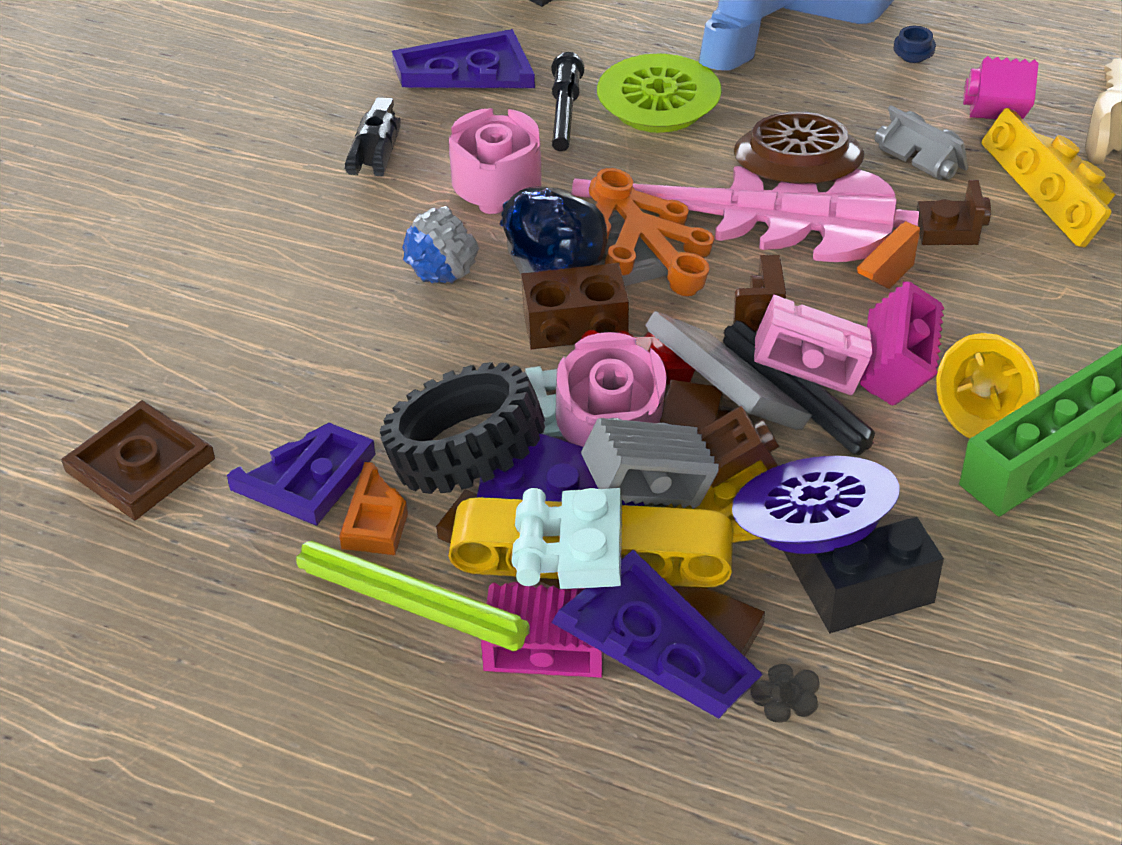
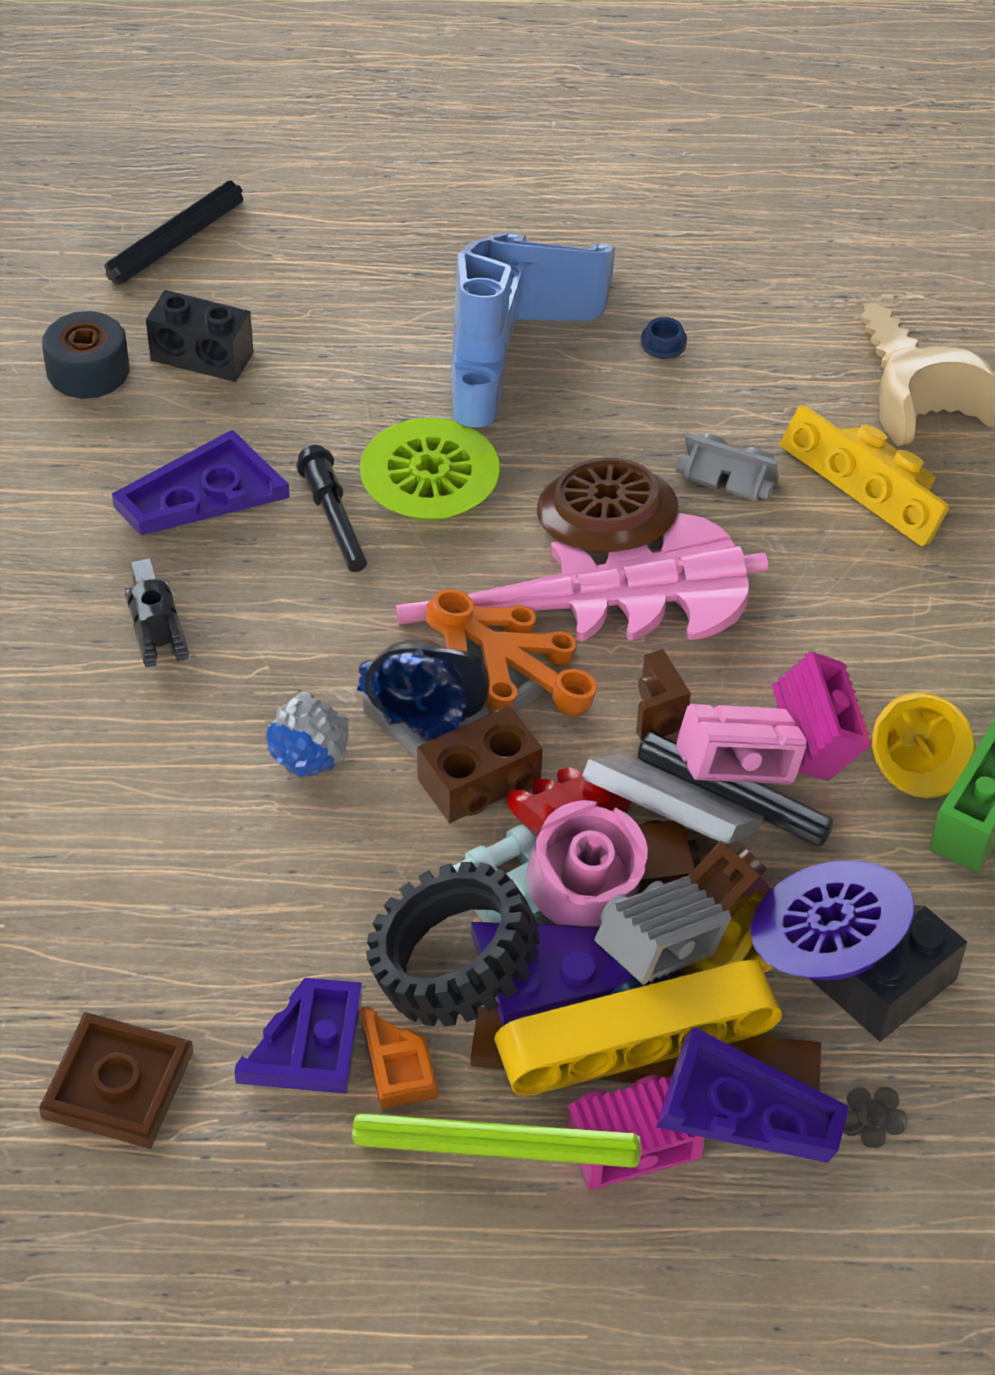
camera: 25 degrees left, 5 degrees up
(494, 157) = (308, 608): bright pink brick -> none
(588, 542) = (653, 1027): light aqua plate -> none
(892, 256) = (763, 613): orange tile -> none
(954, 221) = (798, 549): reddish brown bracket -> none
(1001, 86) = (787, 384): dark pink brick -> none

